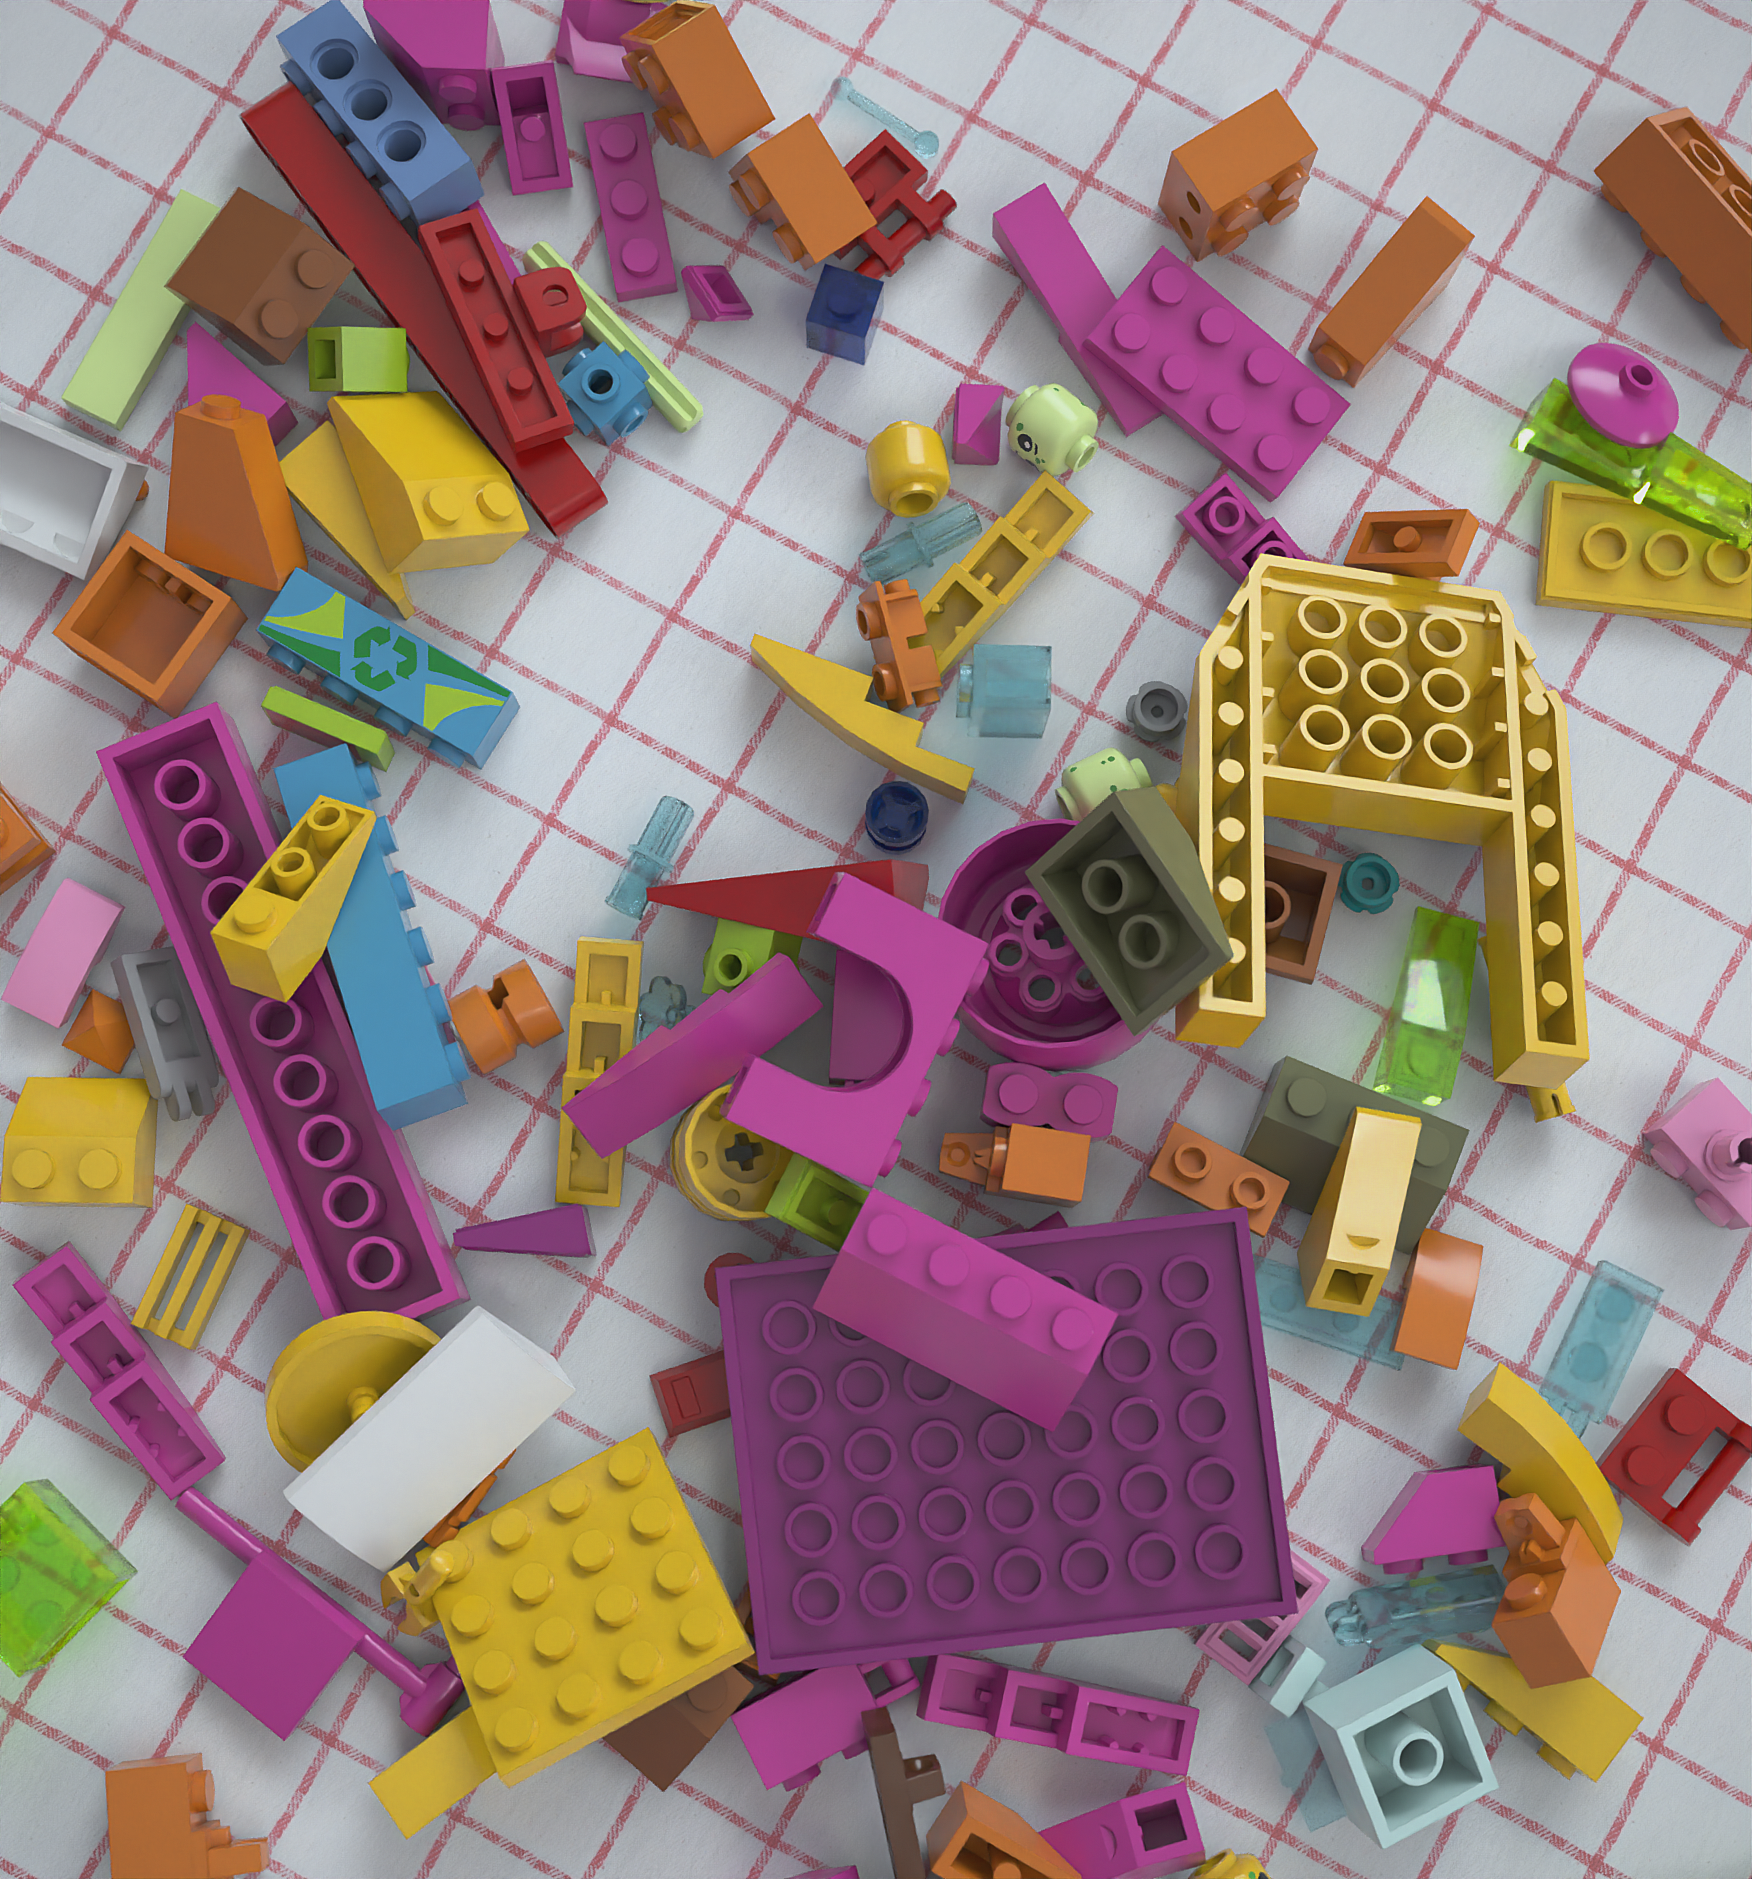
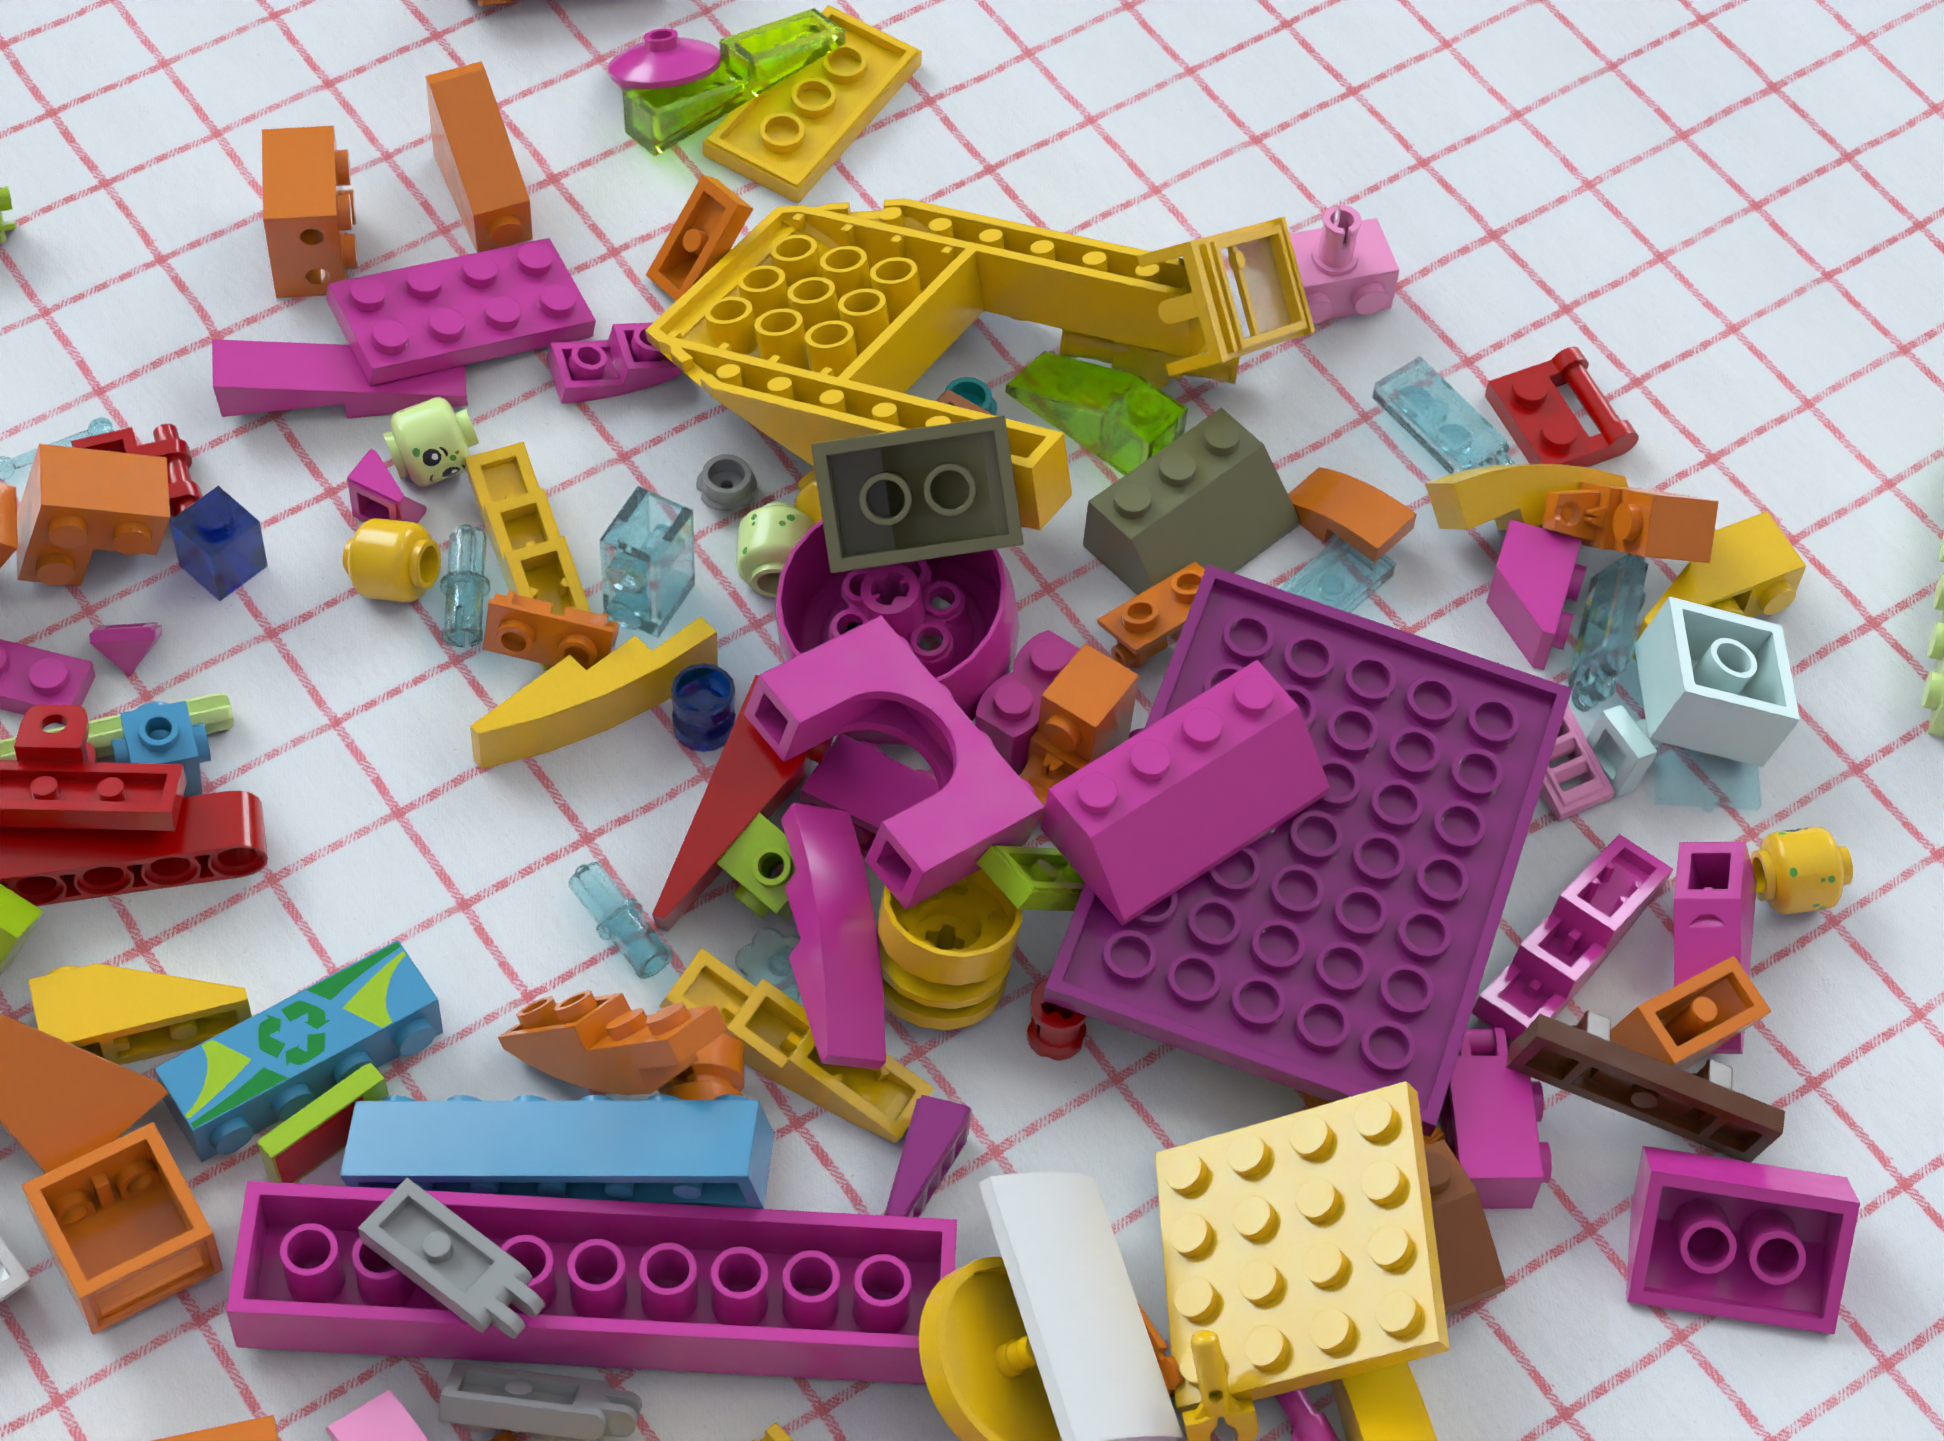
camera: 65 degrees left, 25 degrees down
(210, 878) = (450, 1260): none -> light grey hinge
(292, 903) = (496, 1172): yellow slope -> none
(426, 482) = (159, 923): yellow slope -> none
(490, 922) = (607, 1044): none -> orange slope
(693, 1393) = (1143, 1091): red tile -> none
(1359, 1213) = (1255, 511): yellow slope -> none
(1586, 1083) = (1241, 290): none -> yellow door

